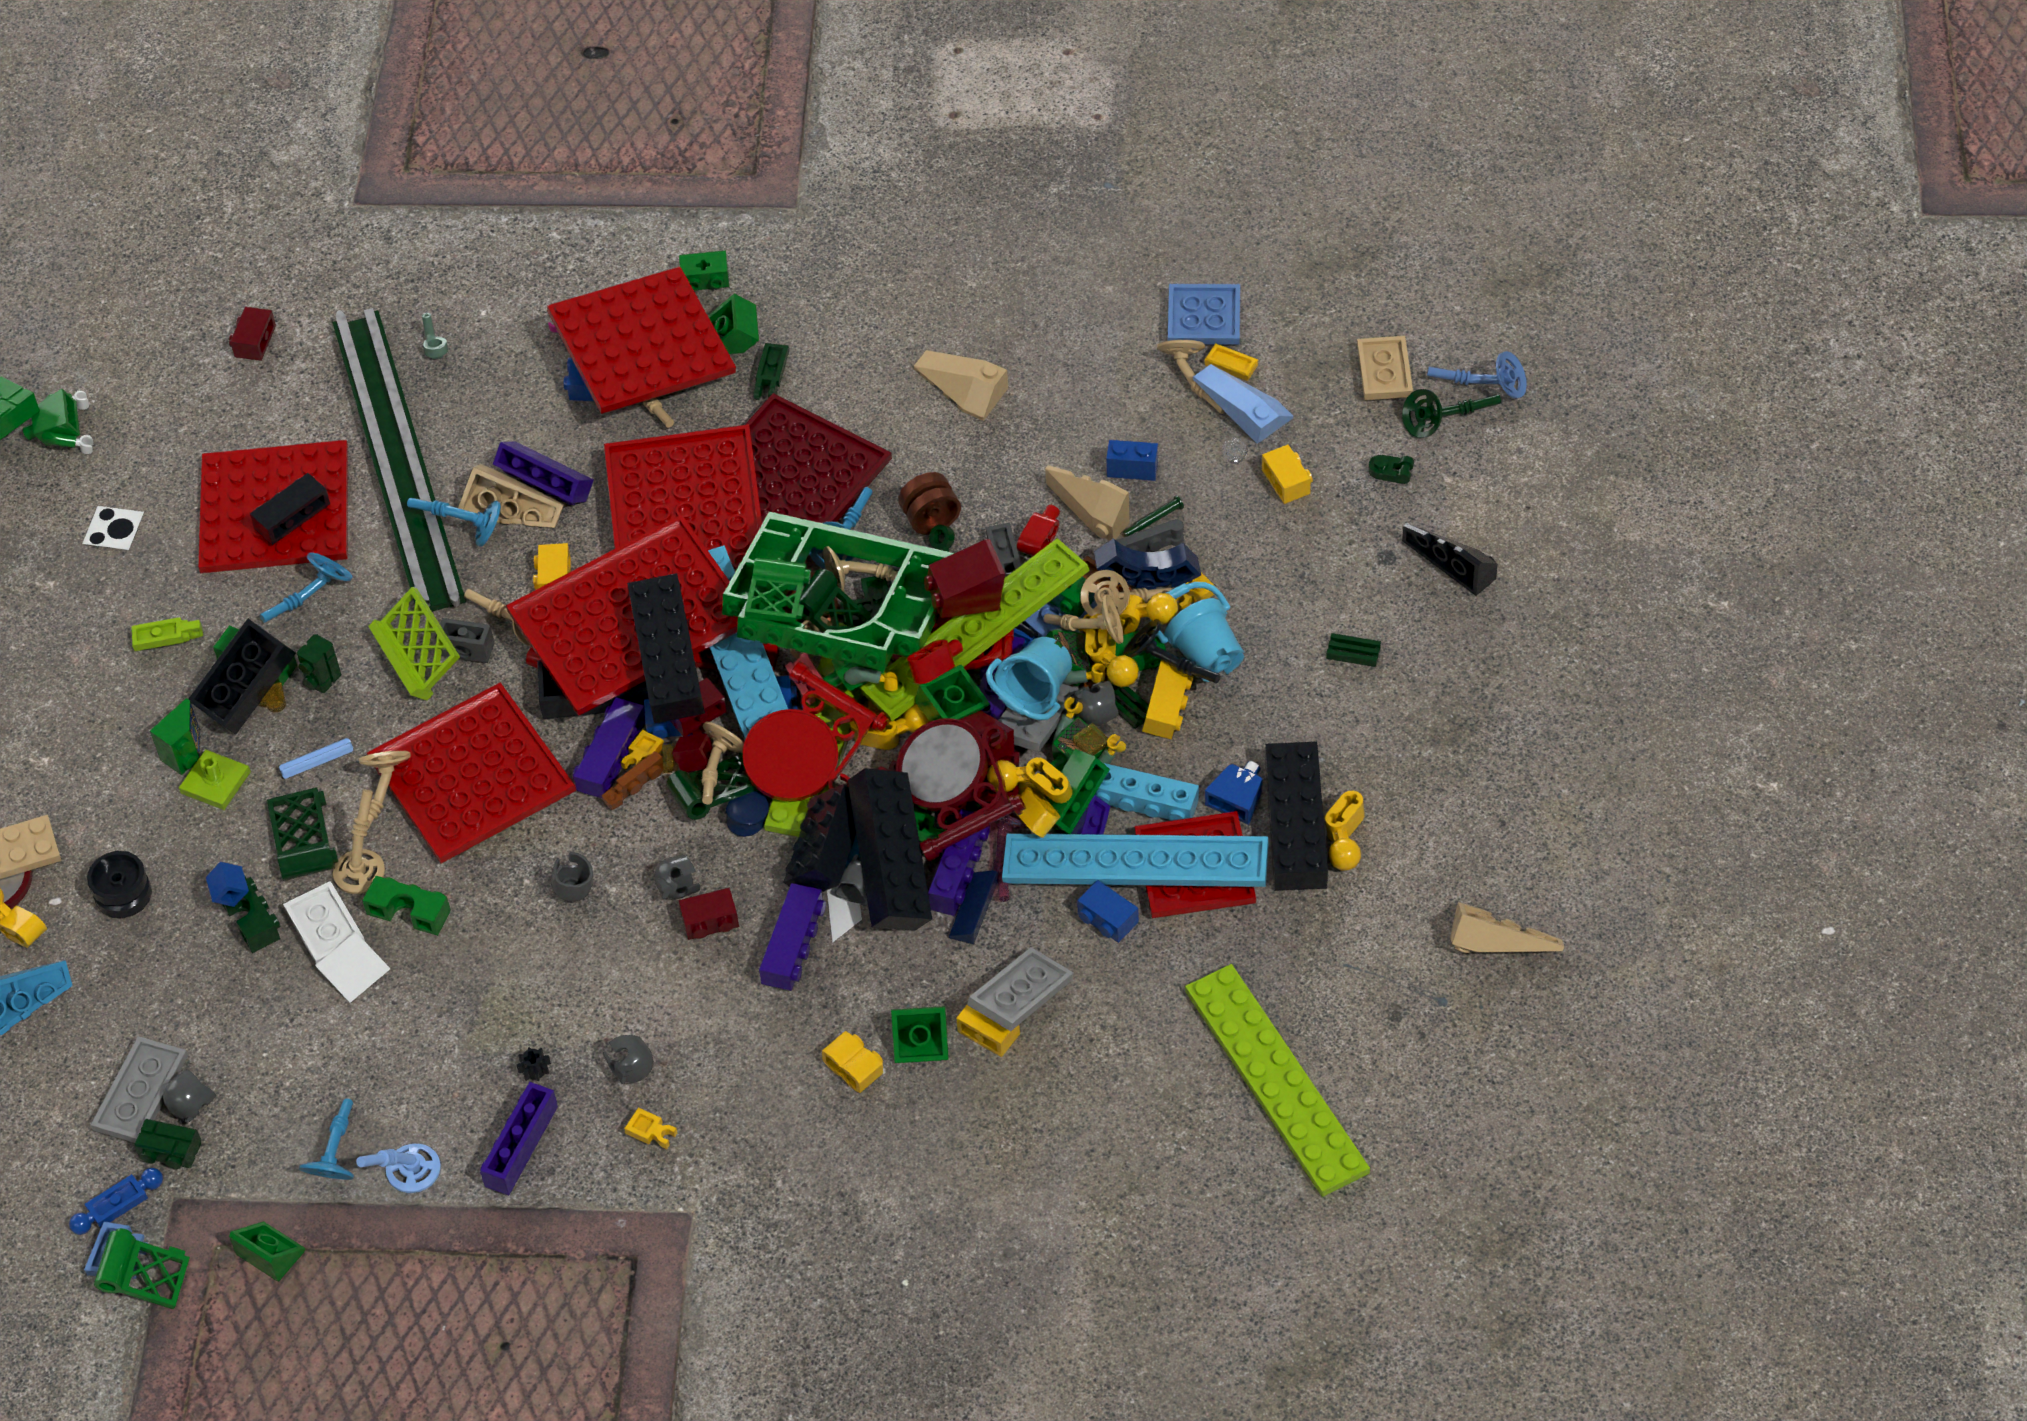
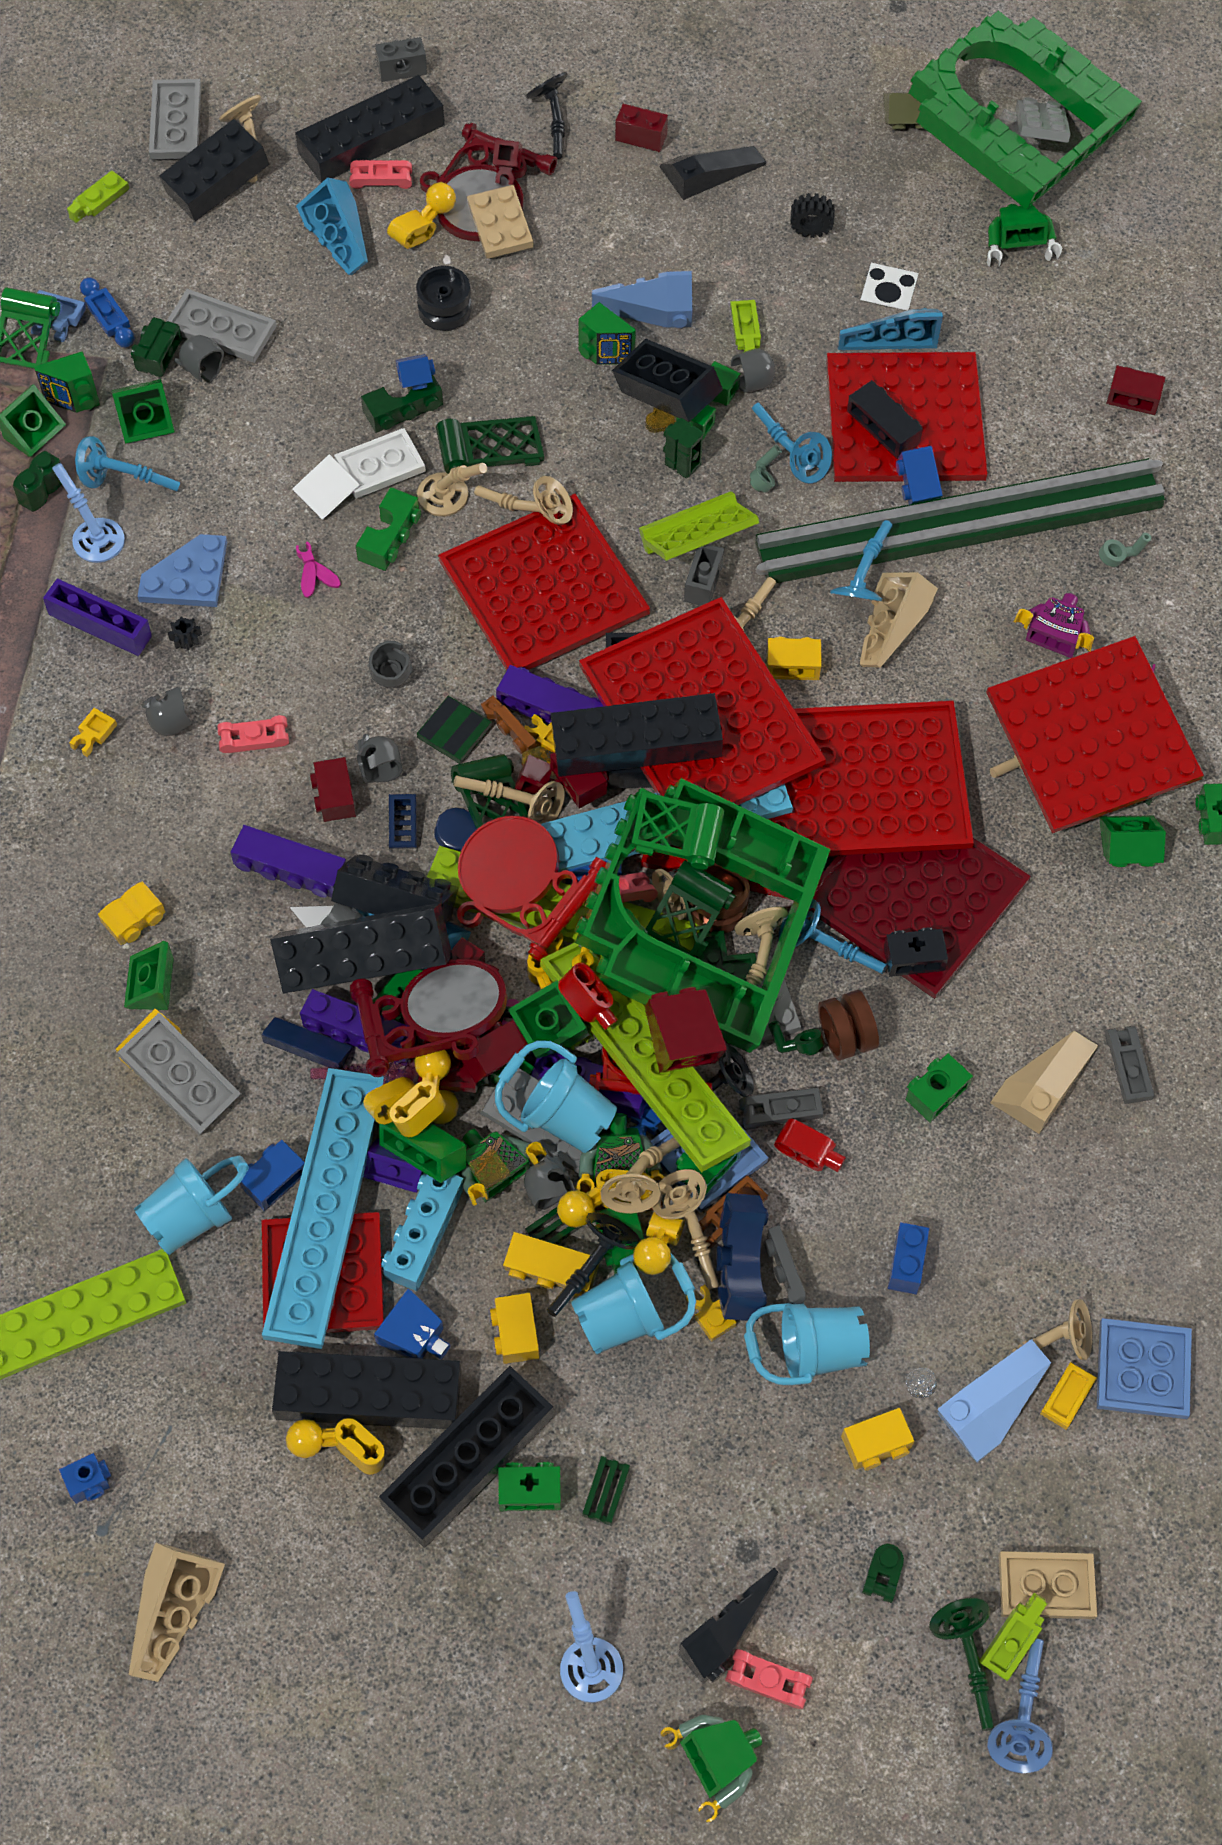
camera: 90 degrees right, 10 degrees up
(31, 581) = (816, 224): none -> black tyre
(135, 704) = (656, 301): none -> medium blue wedge
(174, 499) = (899, 331): none -> dark azure wedge
(214, 779) = (566, 375): lime tile -> none
(221, 612) = (757, 369): none -> dark grey helmet
(223, 1204) = (68, 383): none -> green slope
(251, 1144) = (143, 411): none -> green slope
(316, 758) = (580, 455): light blue axle -> none
(345, 1225) = (37, 482): none -> dark green brick
(349, 609) = (760, 478): none -> sand green plate
(354, 482) = (919, 475): none -> blue brick
(453, 968) = (314, 570): none -> dark pink piece
(458, 1077) = (187, 575): none -> medium blue plate
(517, 379) = (1057, 625): none -> magenta torso
(543, 472) = (925, 648): dark purple brick -> none
(635, 829) = (454, 729): none -> tile
(647, 993) = (253, 735): none -> coral plate
(729, 866) = (402, 800): none -> dark blue slope
(771, 369) = (1069, 877): dark green hinge -> none
(857, 461) = (929, 954): none -> black brick
(942, 327) = (1130, 1065): none -> dark grey plate
(977, 448) = (933, 1102): none -> green brick
(1098, 505) = (836, 1210): tan wedge -> none
(1146, 957) = (187, 1204): none -> medium azure piece
(1155, 516) = (826, 1278): dark green piece -> none
(1216, 511) = (813, 1341): none -> medium azure piece
(1226, 718) = (516, 1328): none -> yellow brick
(1344, 736) = (466, 1456): none -> black brick
(1361, 696) = (512, 1487): none -> green brick
(1403, 1011) = (86, 1478): none -> blue brick
(1428, 378) = (1015, 1637): none -> lime hinge
(1487, 534) = (768, 1679): none -> coral plate
(1495, 643) = (589, 1660): none -> light blue dish
(1553, 553) = (719, 1756): none -> green torso

